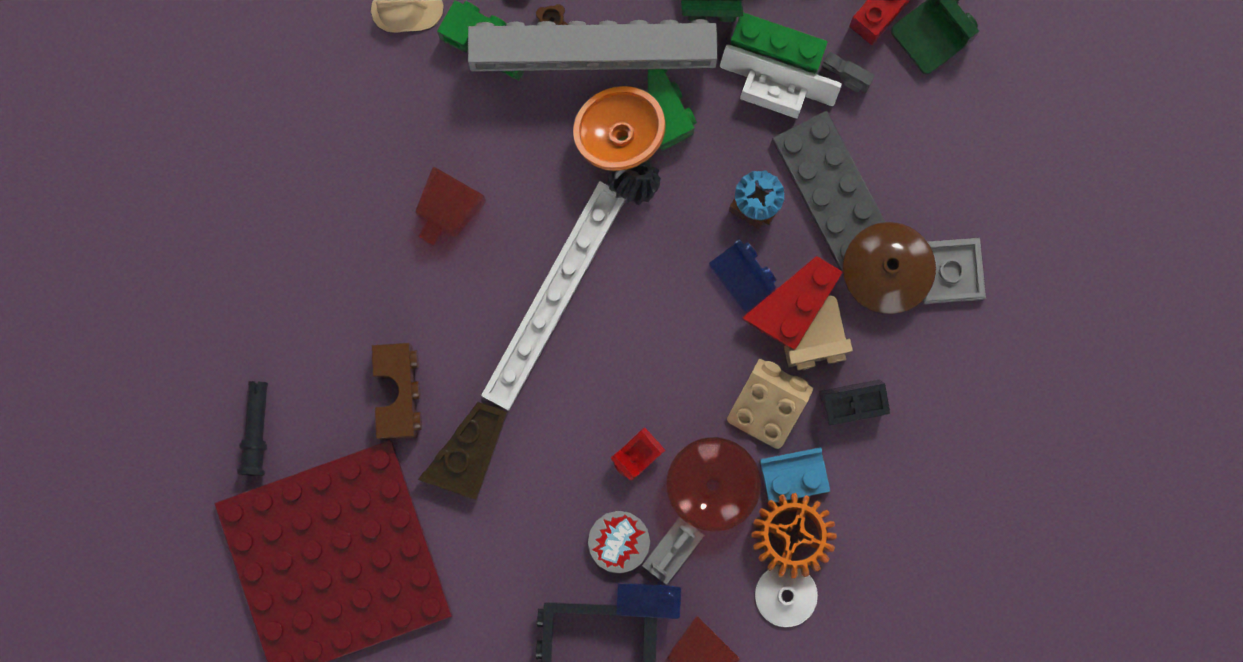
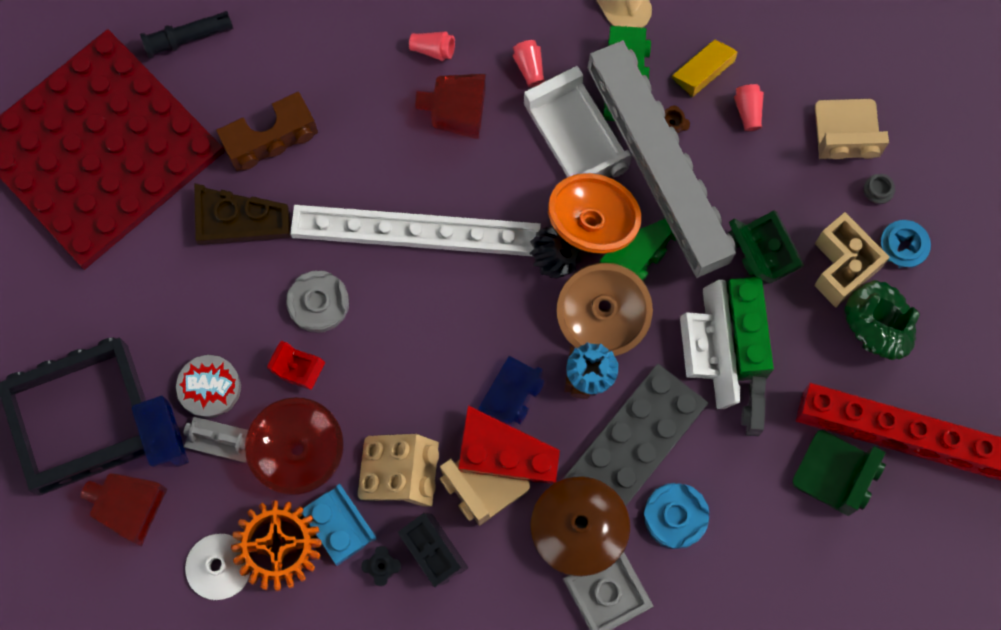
camera: 65 degrees right, 10 degrees down
(375, 201) = (434, 44): none -> coral cone
(434, 121) = (529, 60): none -> coral cone
(521, 109) = (575, 127): none -> white panel
(581, 412) = (317, 301): none -> light grey tile
(723, 163) = (619, 326): none -> medium nougat dish
(845, 461) = (390, 566): none -> black plate
(910, 183) = (676, 515): none -> dark azure tile

